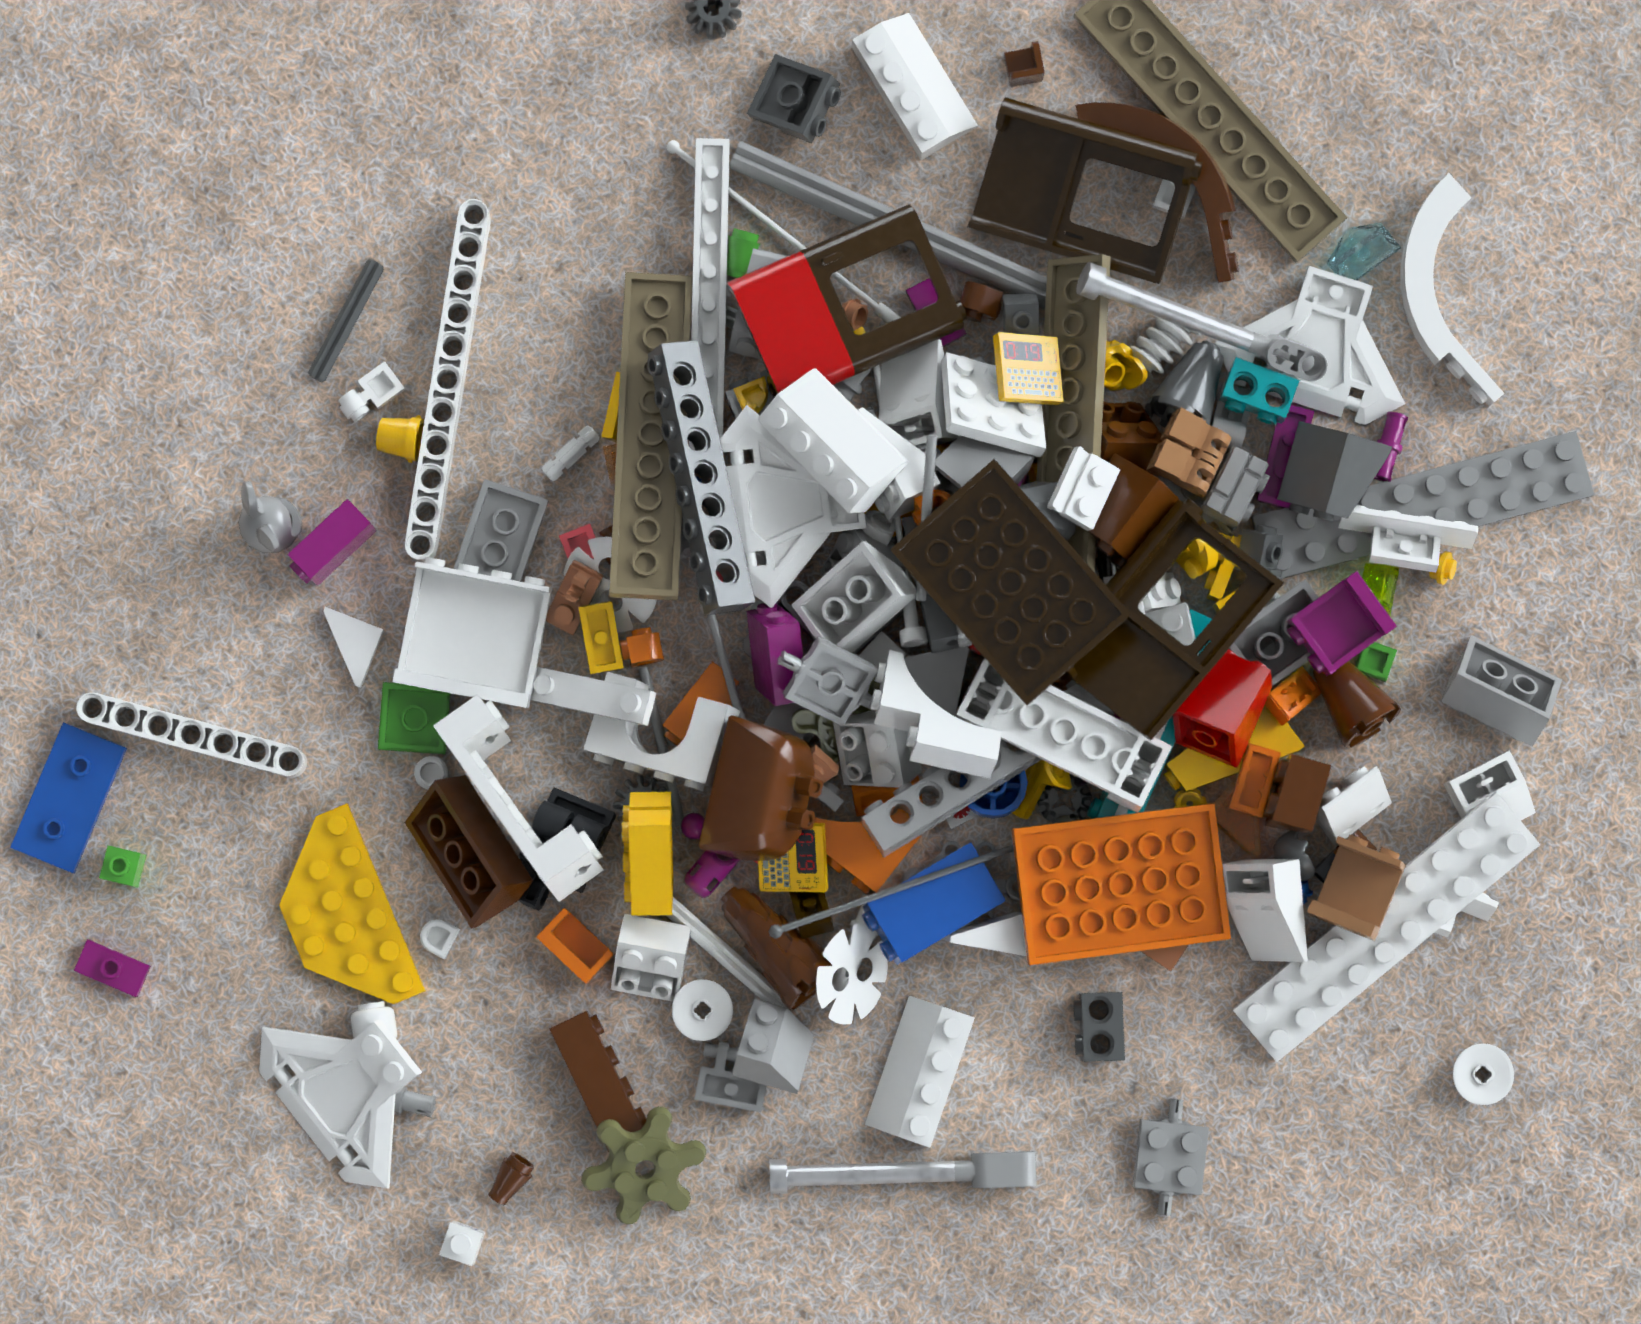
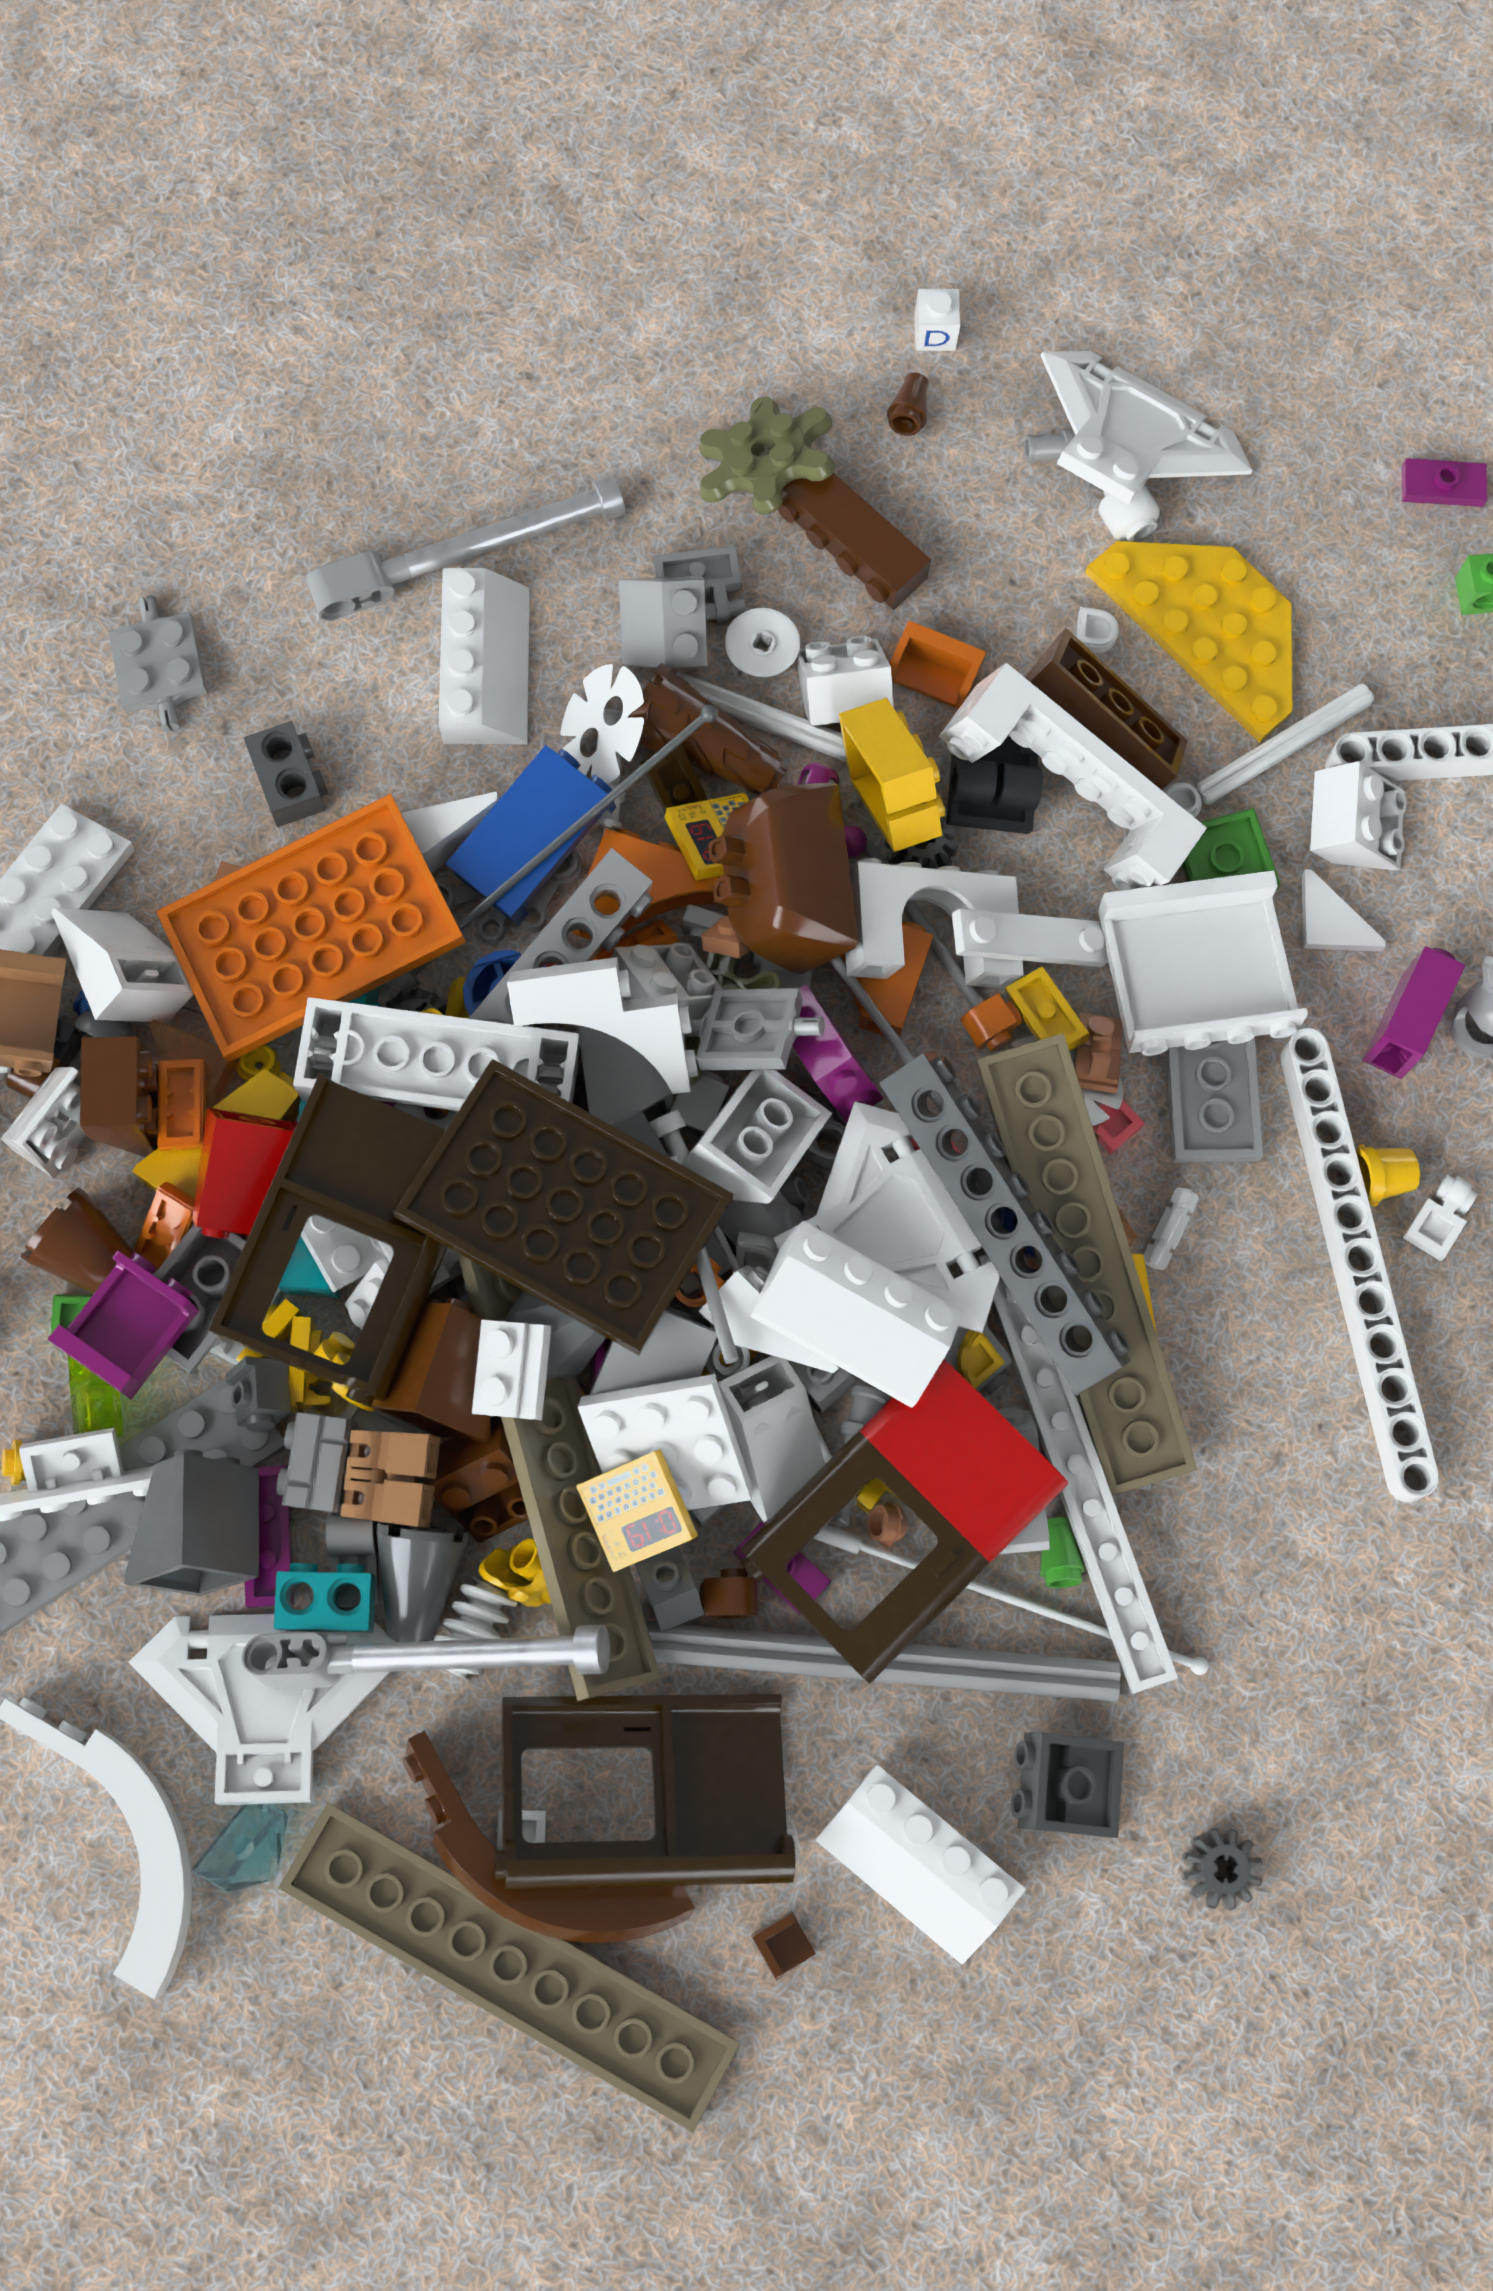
camera: 160 degrees right, 10 degrees down
(303, 711) = (1357, 817): none -> white slope
(331, 793) = (1284, 744): none -> white axle
(1391, 436) = (132, 1607): magenta pin -> none

